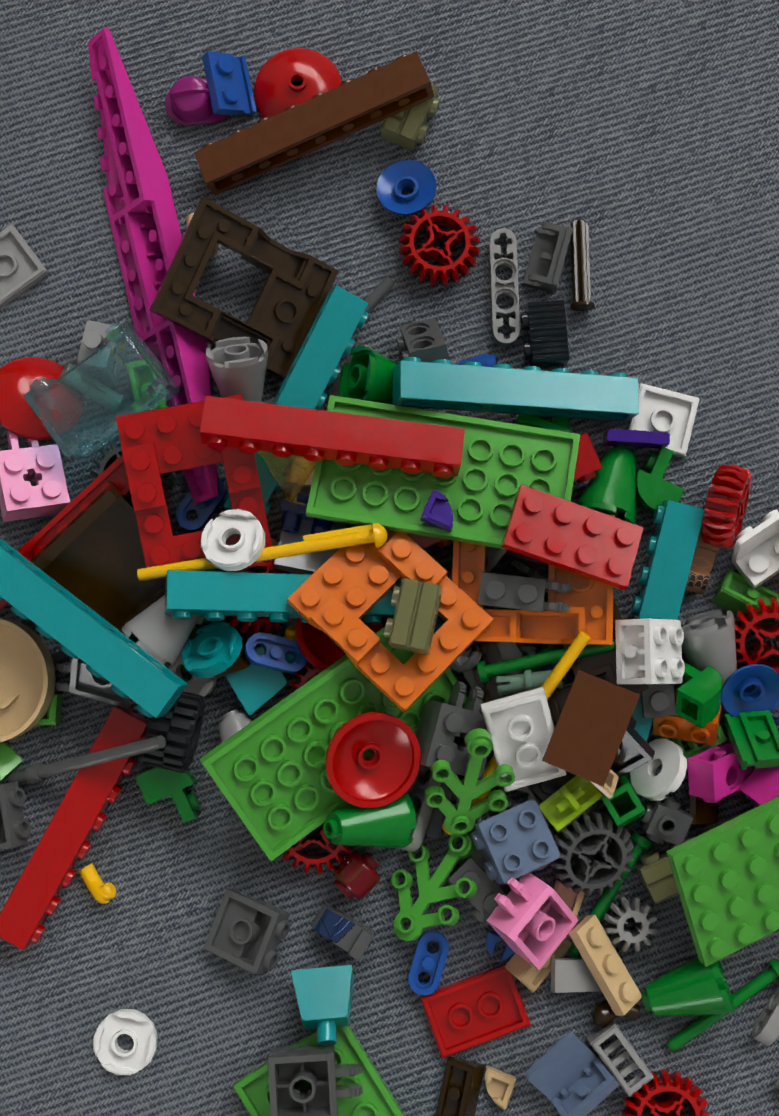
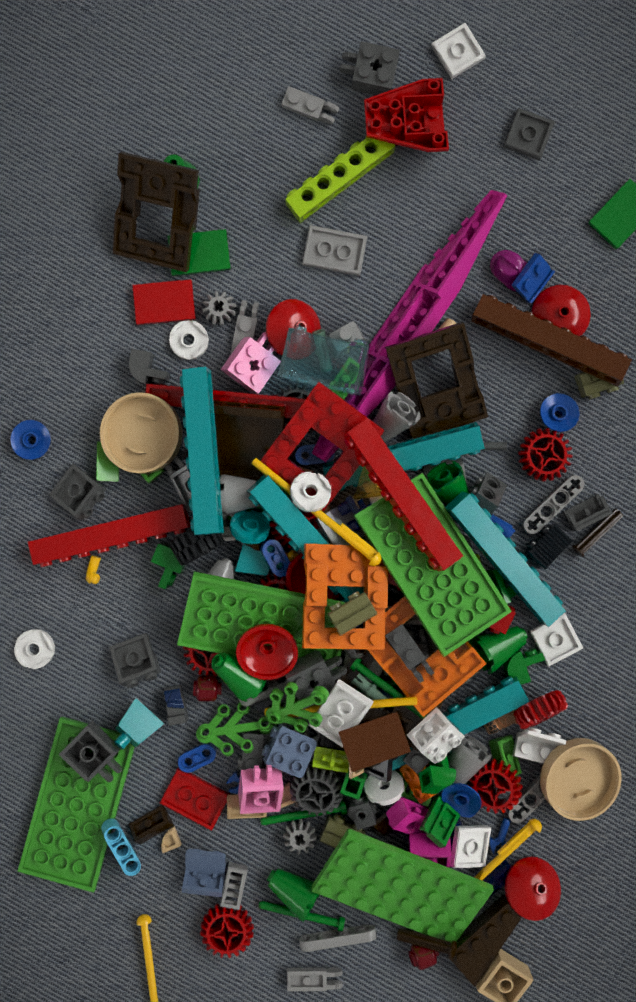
camera: 50 degrees right, 5 degrees up
(39, 772) = (119, 495): dark grey bar -> none
(438, 512) = (412, 579): dark purple tile -> none
(571, 976) = (256, 834): light grey tile -> none
(572, 537) = (457, 654): plate -> none
(604, 1014) = (254, 862): dark brown arm -> none
(605, 965) = (270, 842): tan plate -> none
(636, 438) = (534, 635): dark purple tile -> none

